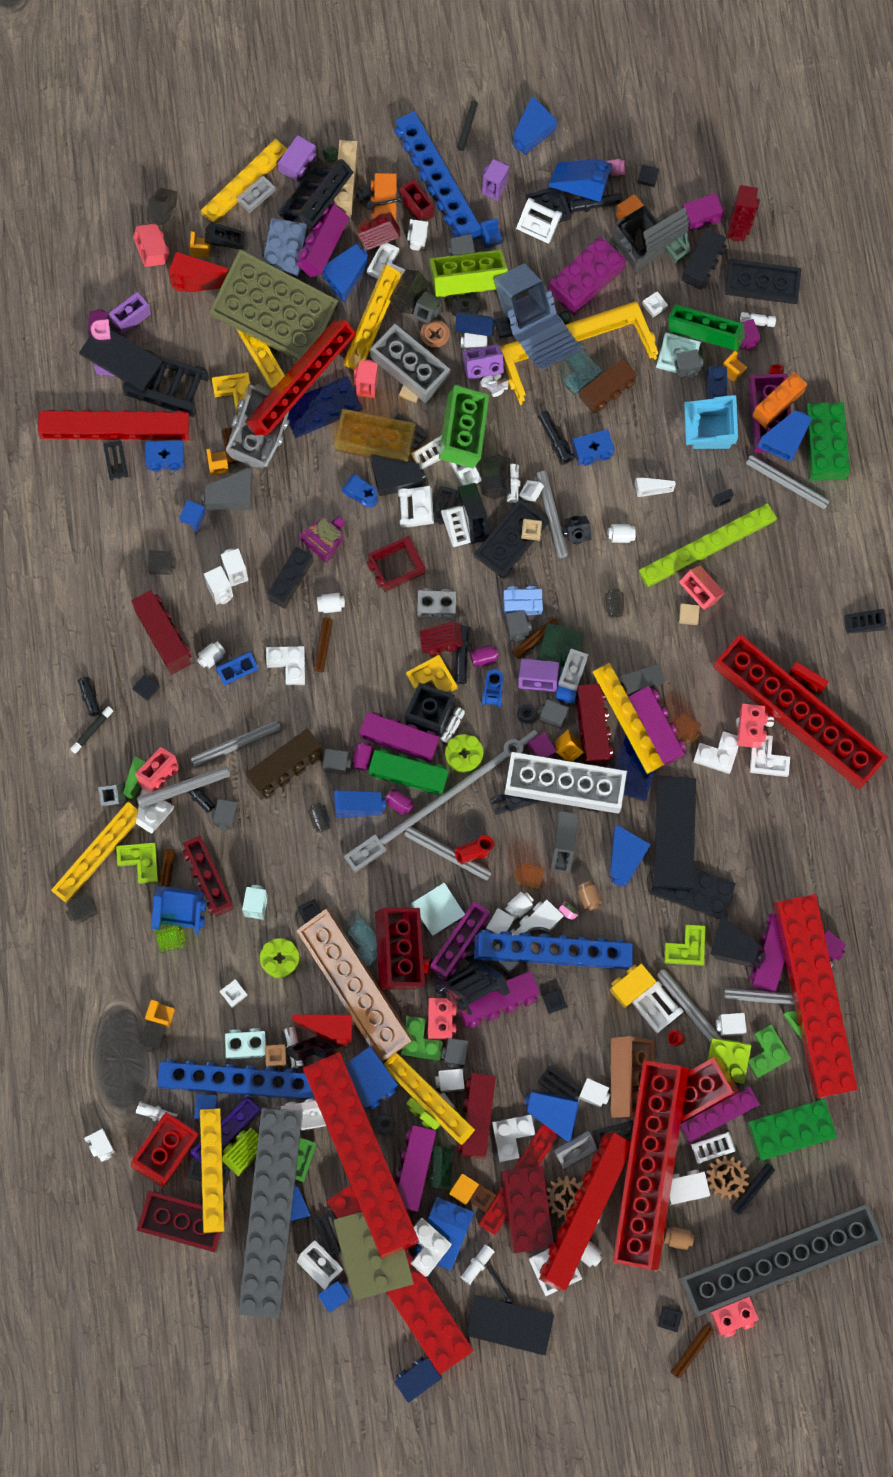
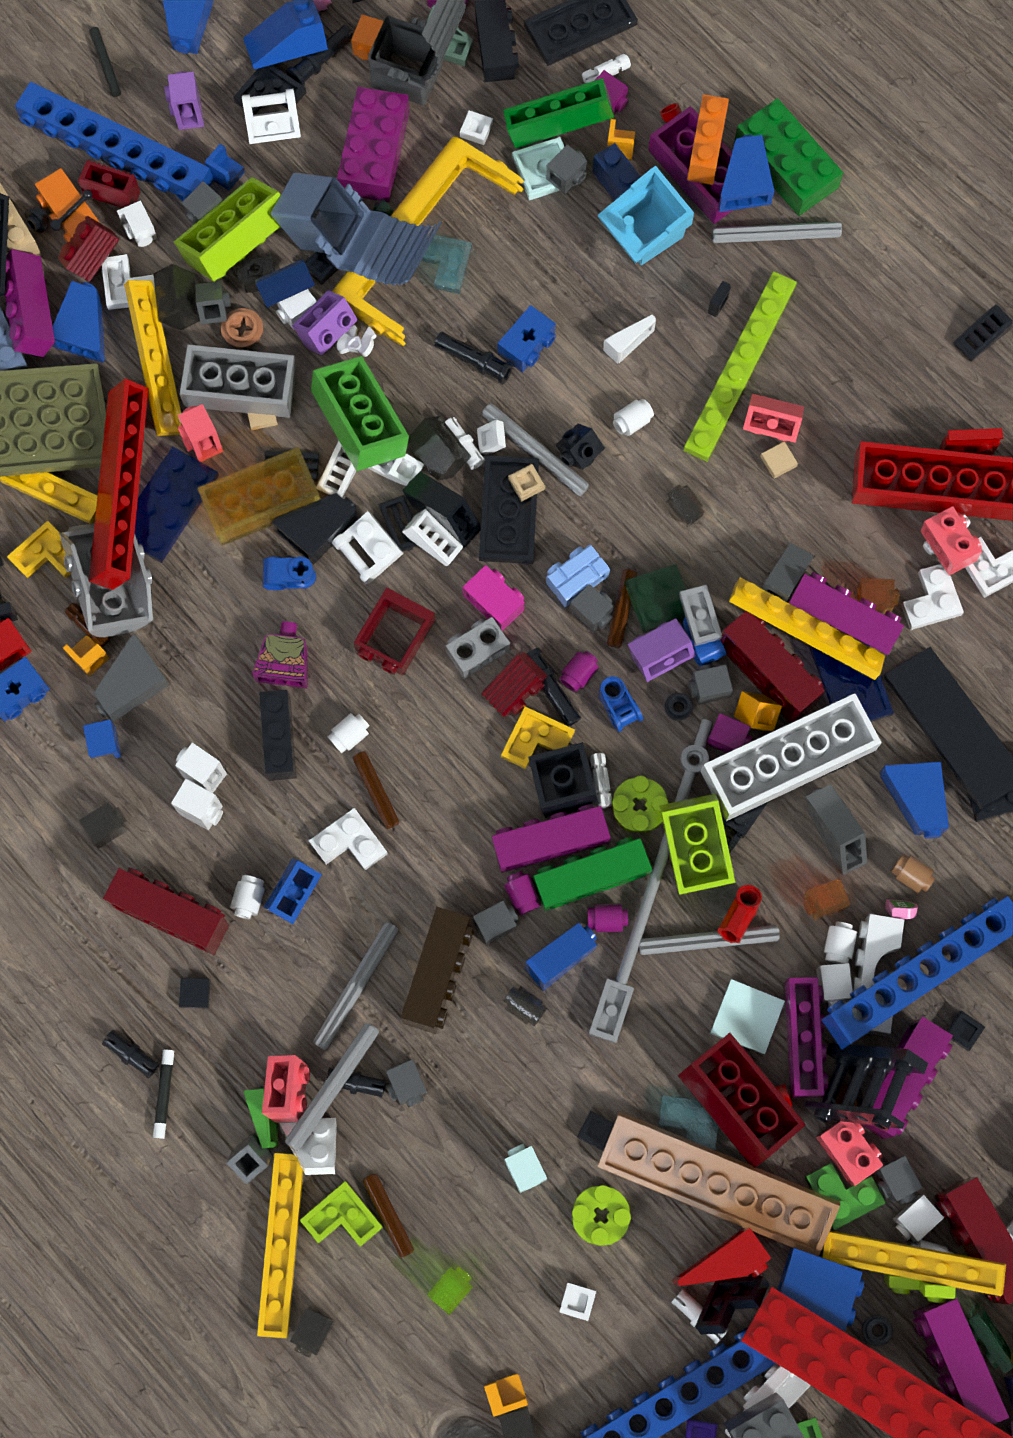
camera: 30 degrees left, 0 degrees up
(178, 908) = (435, 1243): blue panel -> none
(208, 876) = (441, 1176): dark red brick -> none
(246, 1050) = (644, 1362): light aqua brick -> none
(276, 1056) = (688, 1344): medium nougat brick -> none
(466, 582) = (493, 597): none -> dark pink brick
(477, 794) = (697, 844): none -> lime brick
(608, 386) = (492, 256): reddish brown brick -> none

